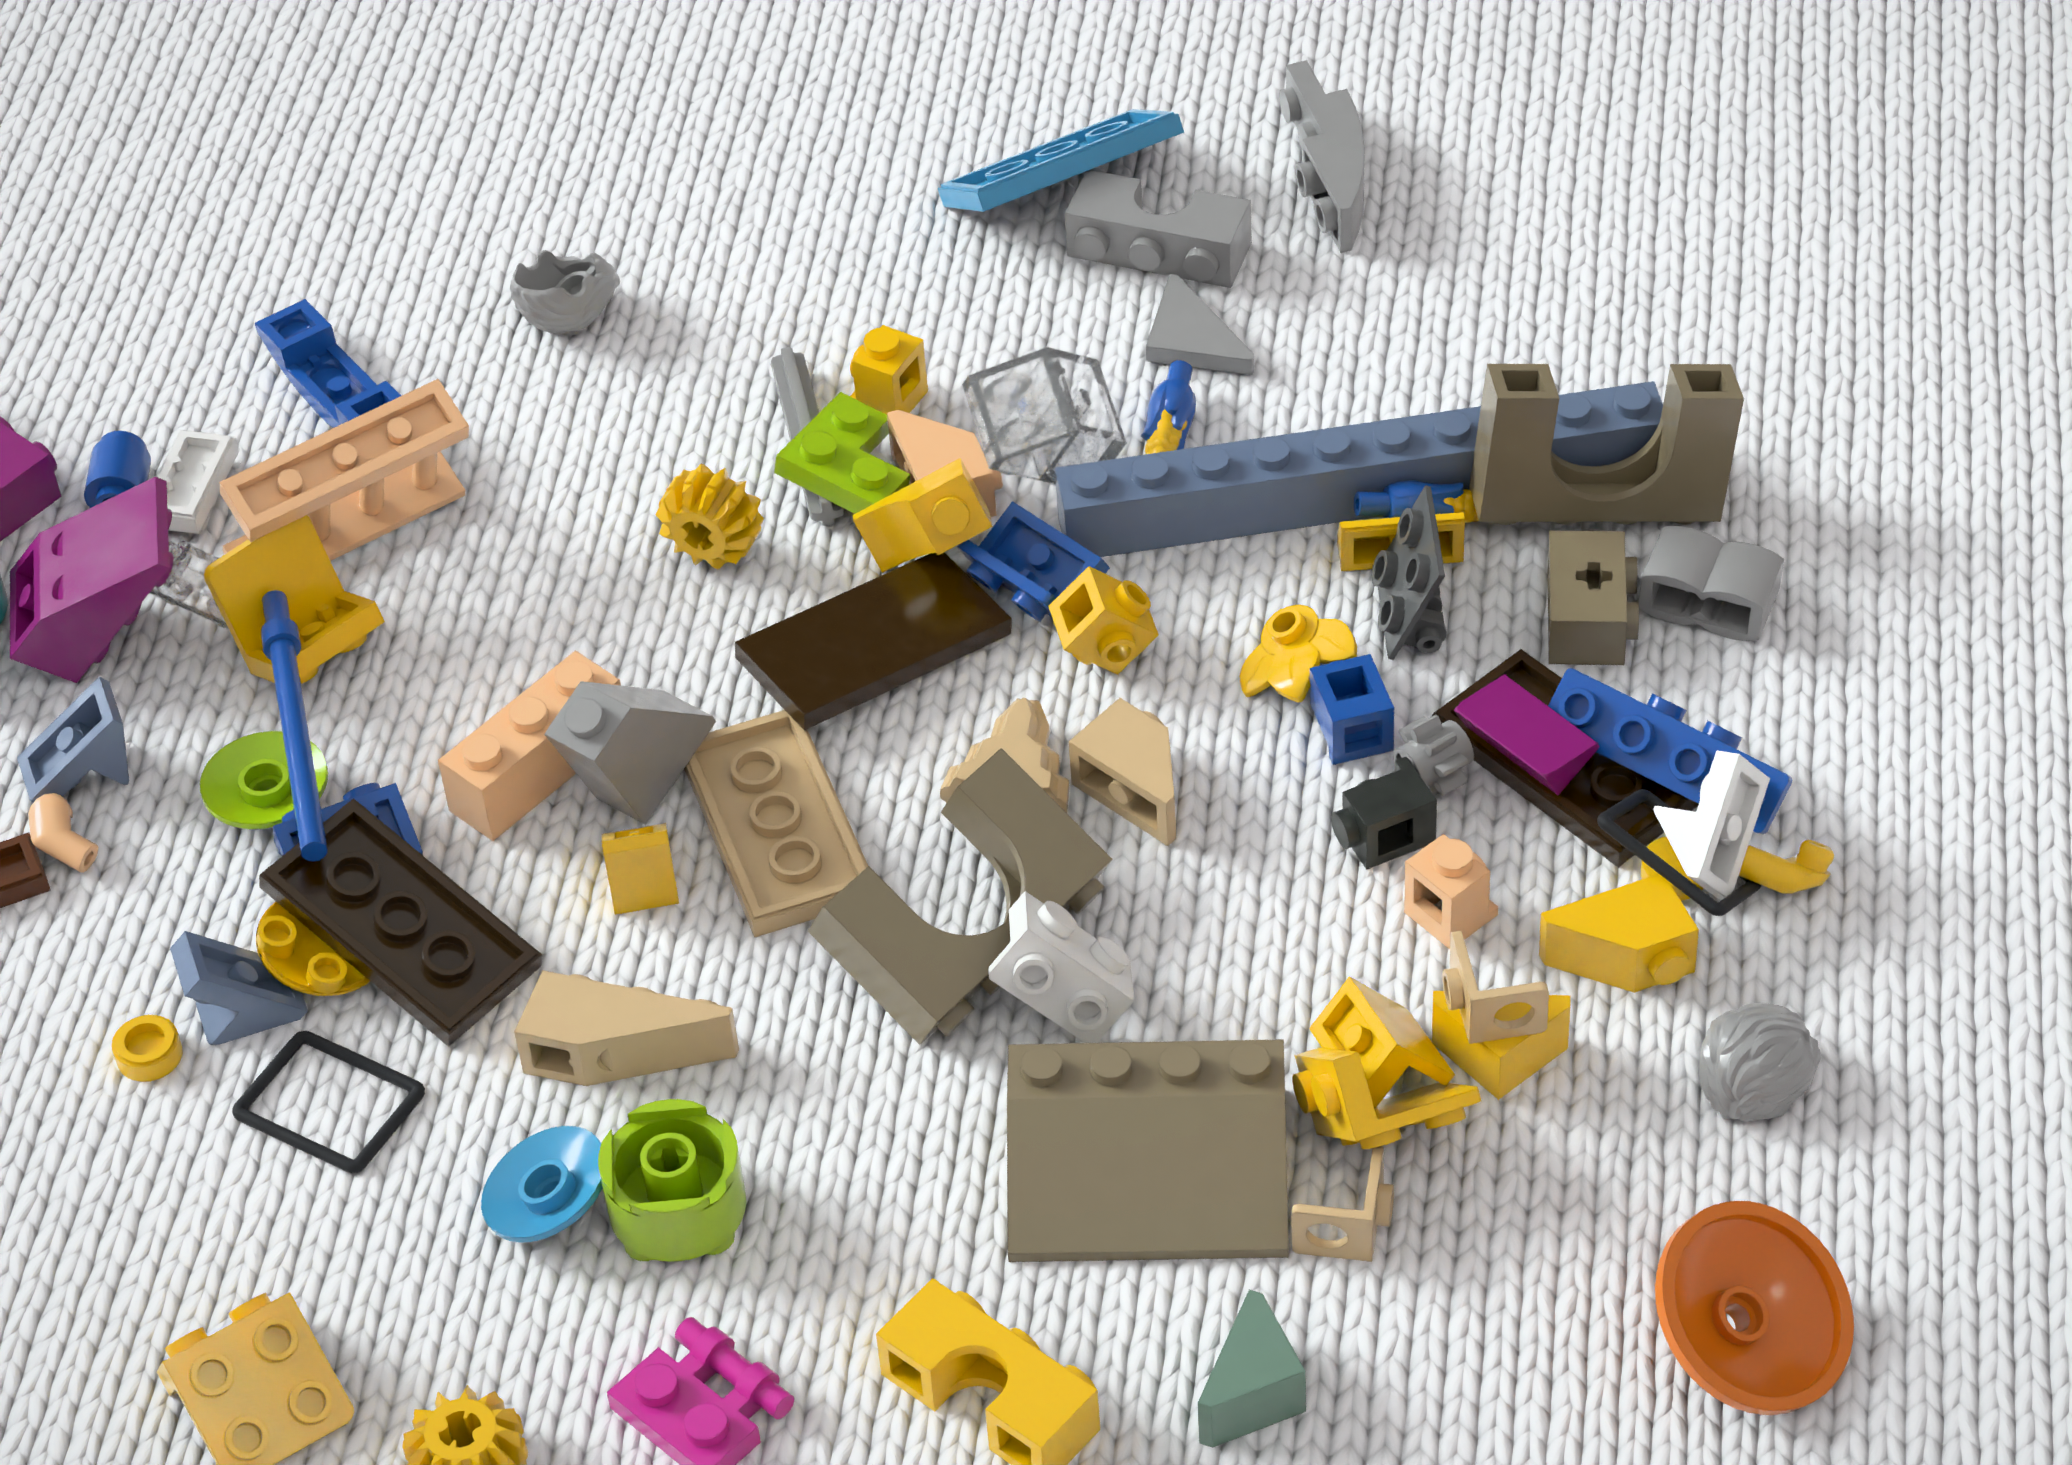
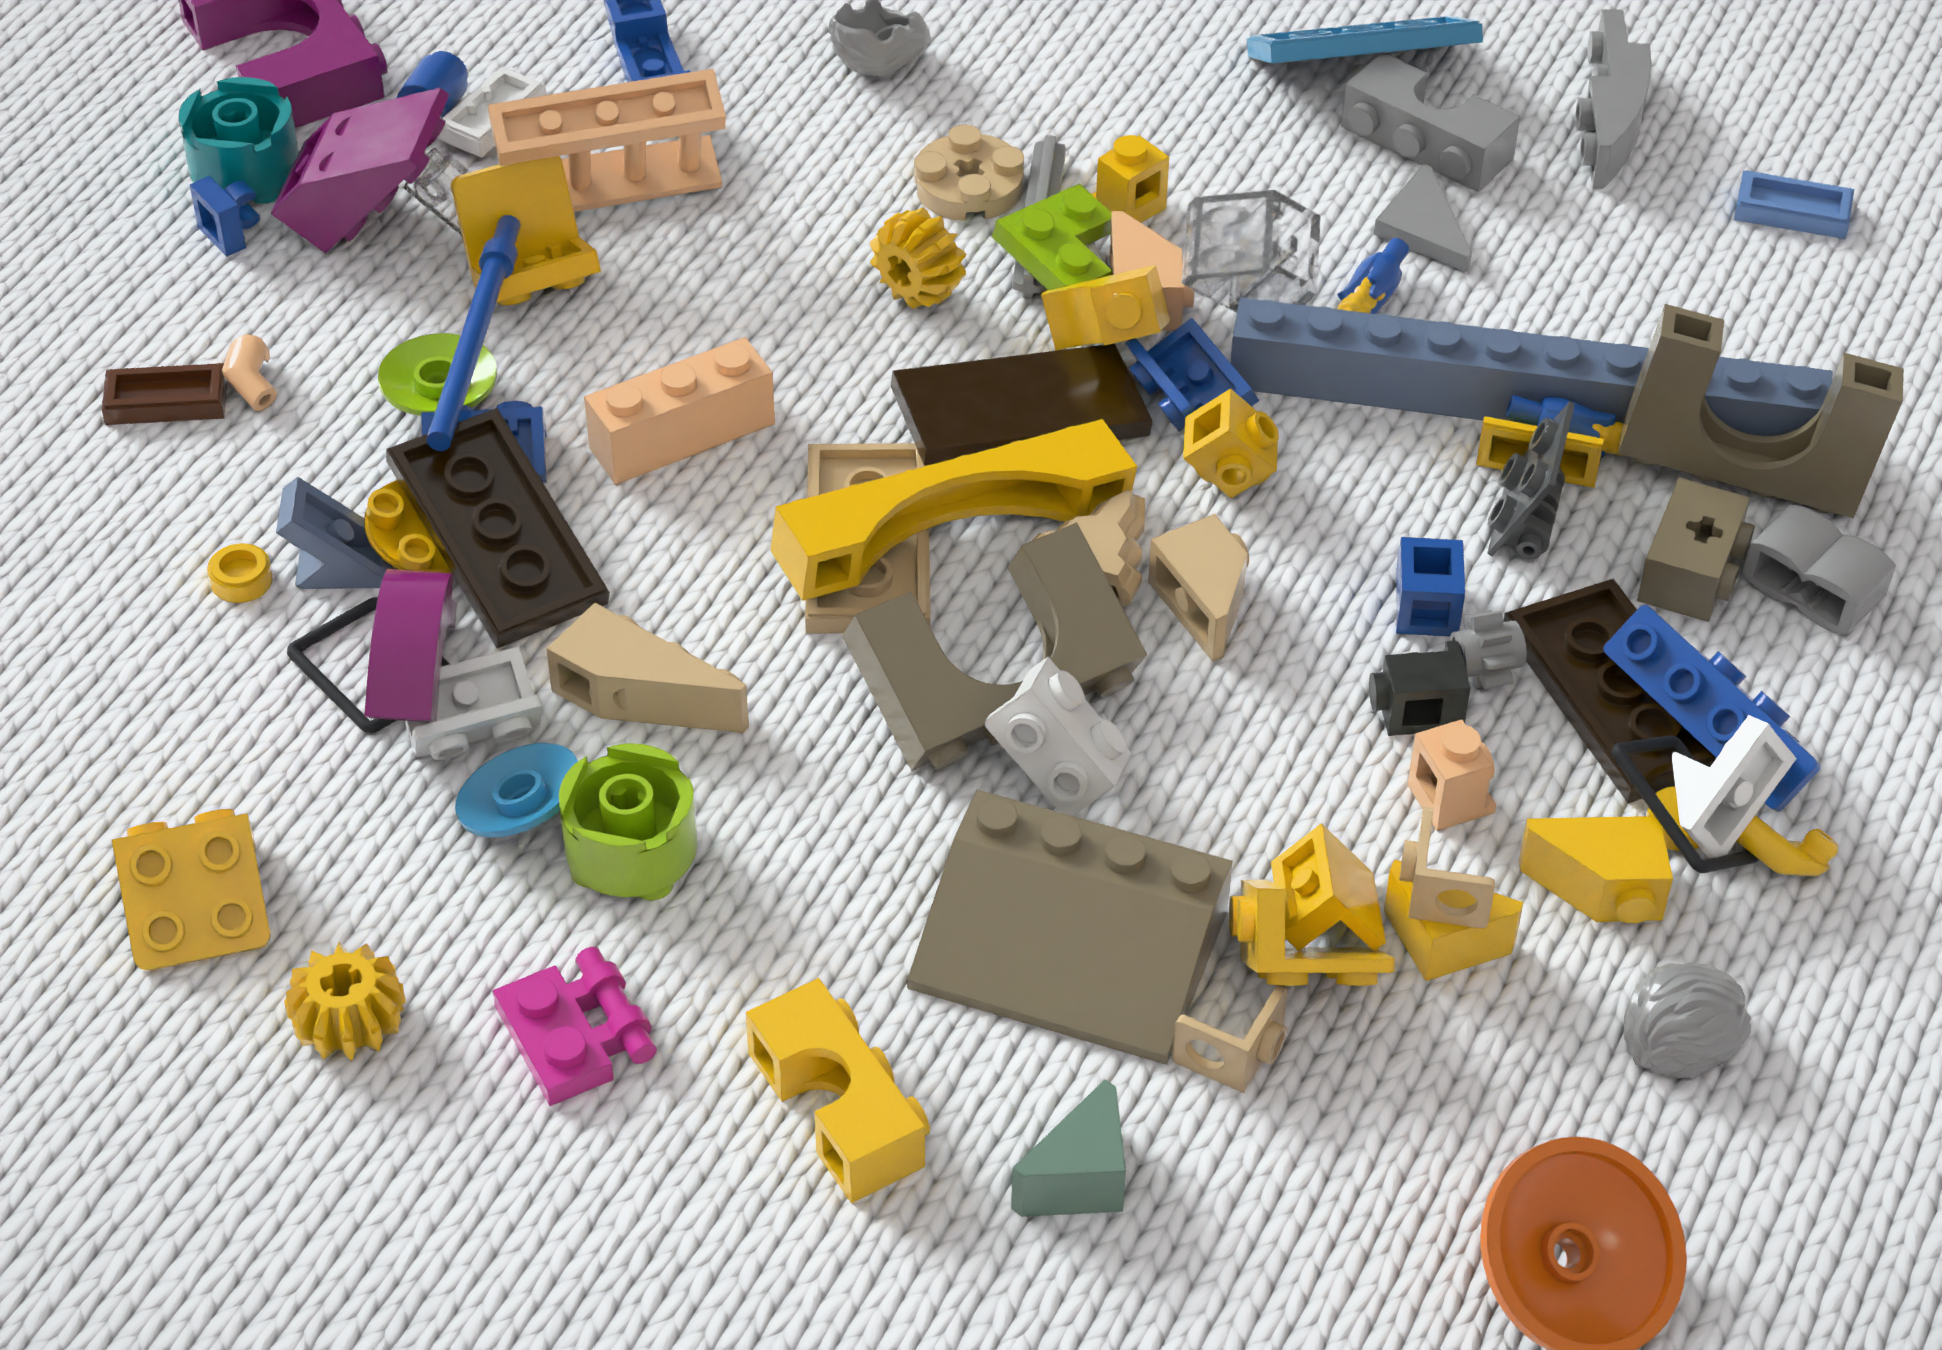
camera: 15 degrees right, 0 degrees up
(77, 741) = (295, 297): sand blue slope -> none
(378, 1069) = (408, 645): none -> magenta arch
(451, 1111) = (478, 702): none -> white bracket
(628, 742) = (756, 426): light grey slope -> none
(639, 868) = (726, 542): yellow slope -> none
(708, 387) = (990, 169): none -> tan plate
(947, 702) = (838, 535): none -> yellow arch
(1290, 646) = (1398, 511): yellow plate -> none
(1527, 732) = (1584, 652): magenta slope -> none
(1543, 216) = (1794, 204): none -> medium blue tile

